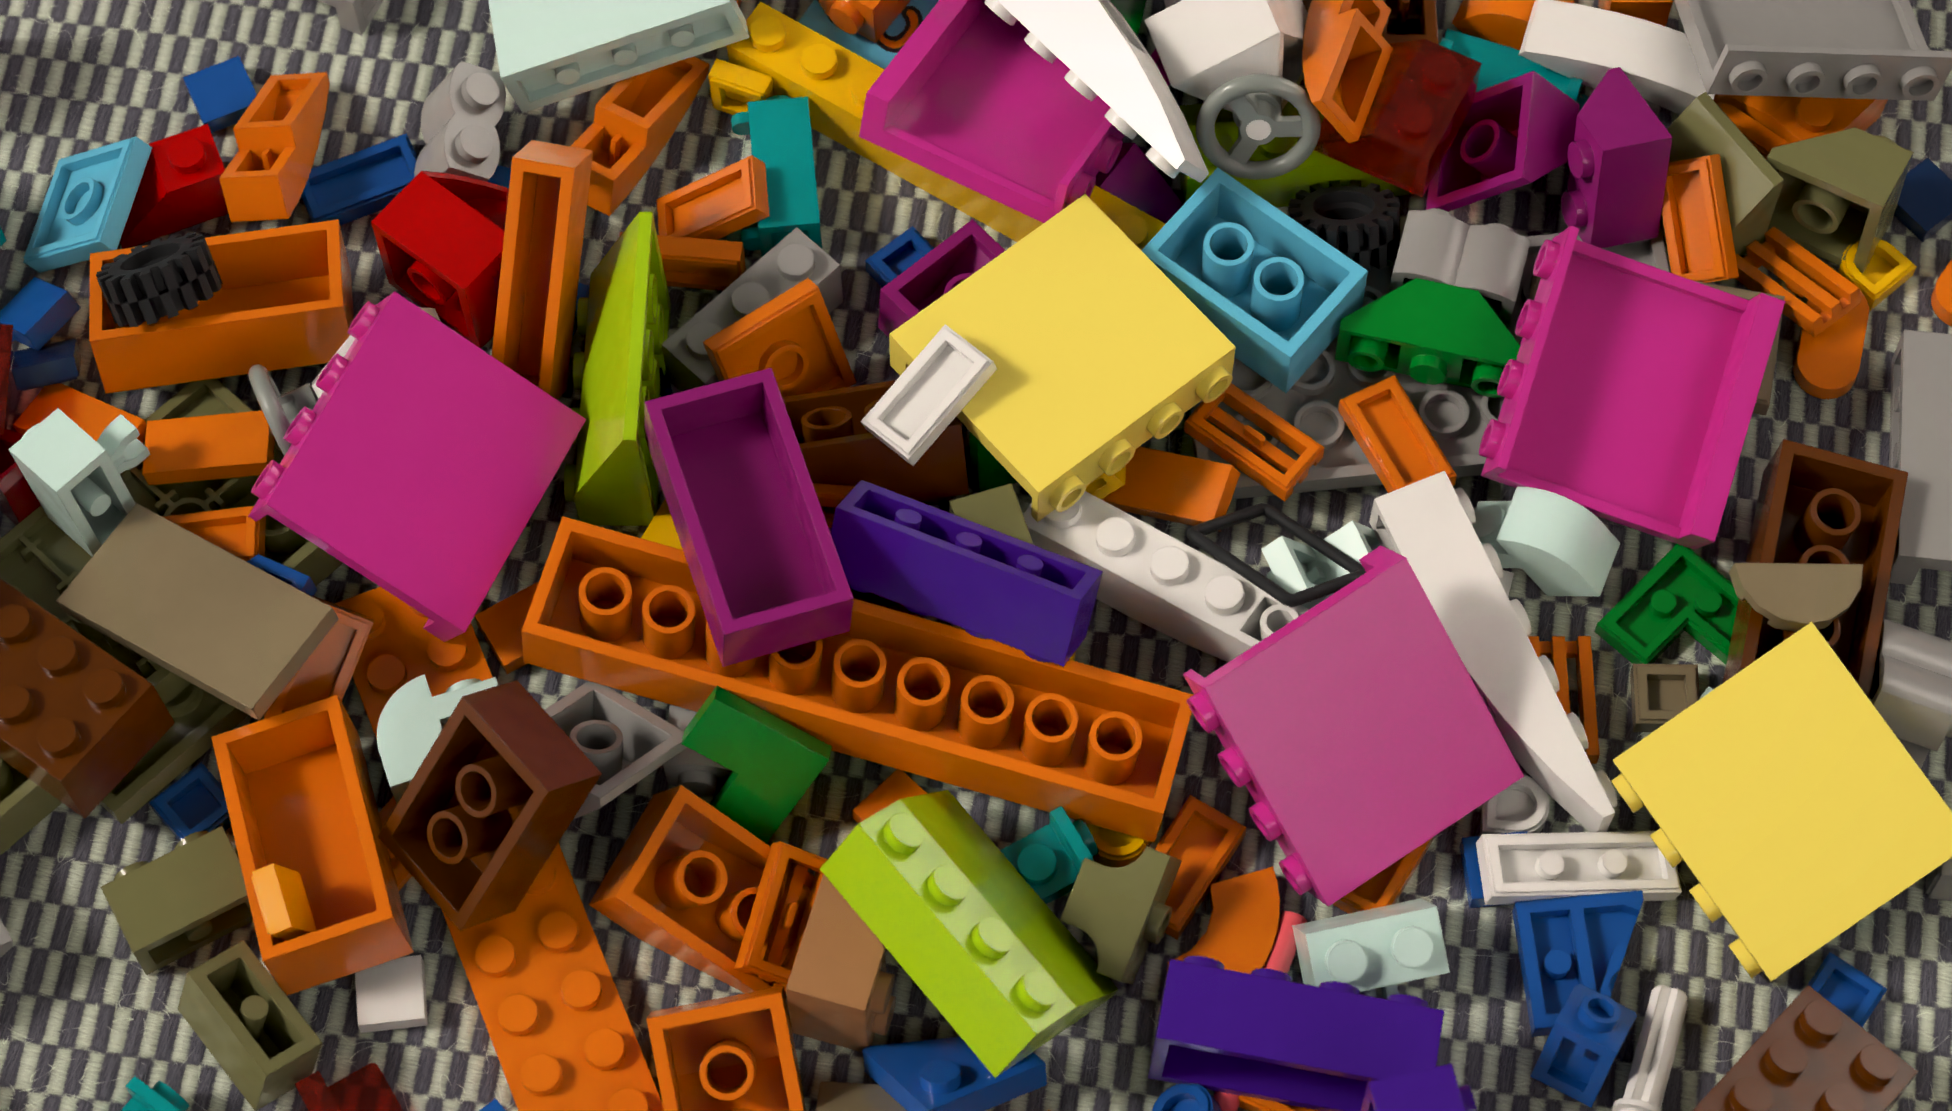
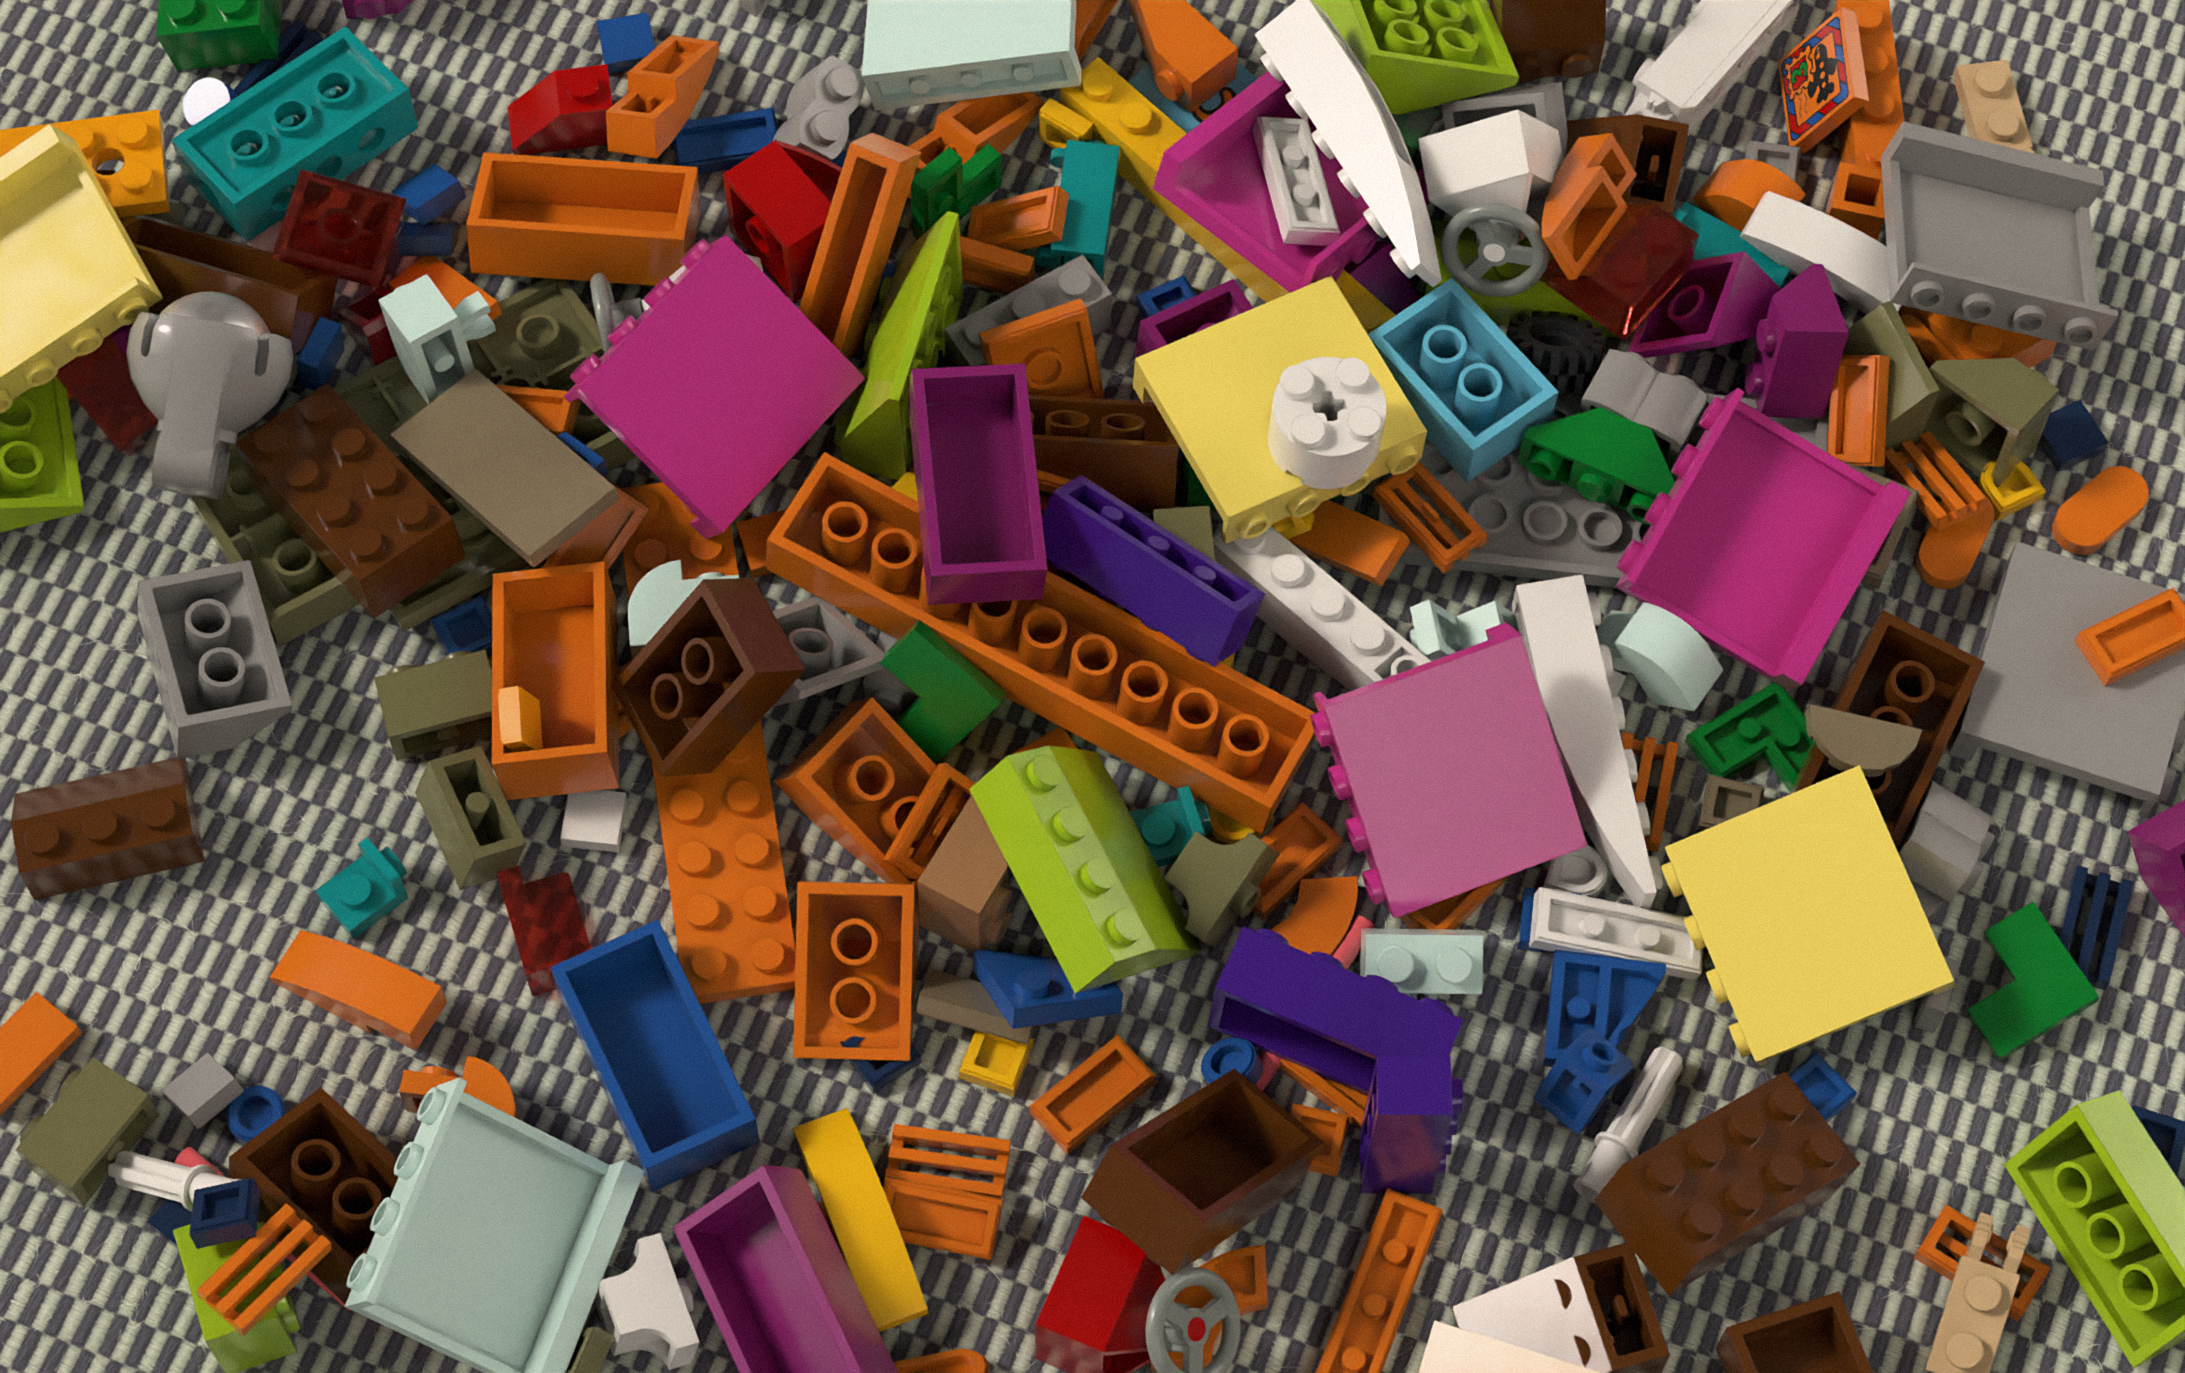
camera: 10 degrees right, 0 degrees up
(87, 204) = (491, 111): medium azure tile -> none
(159, 279) = (535, 185): black tyre -> none
(207, 447) = (543, 335): orange tile -> none
(631, 182) = (953, 186): none -> green tile
(929, 395) = (1155, 416): white tile -> none
(1016, 96) = (1295, 181): none -> white tile
(1125, 360) = (1327, 421): none -> white brick
(1197, 533) = (1358, 584): black piece -> none
(1393, 435) = (1550, 536): orange tile -> none

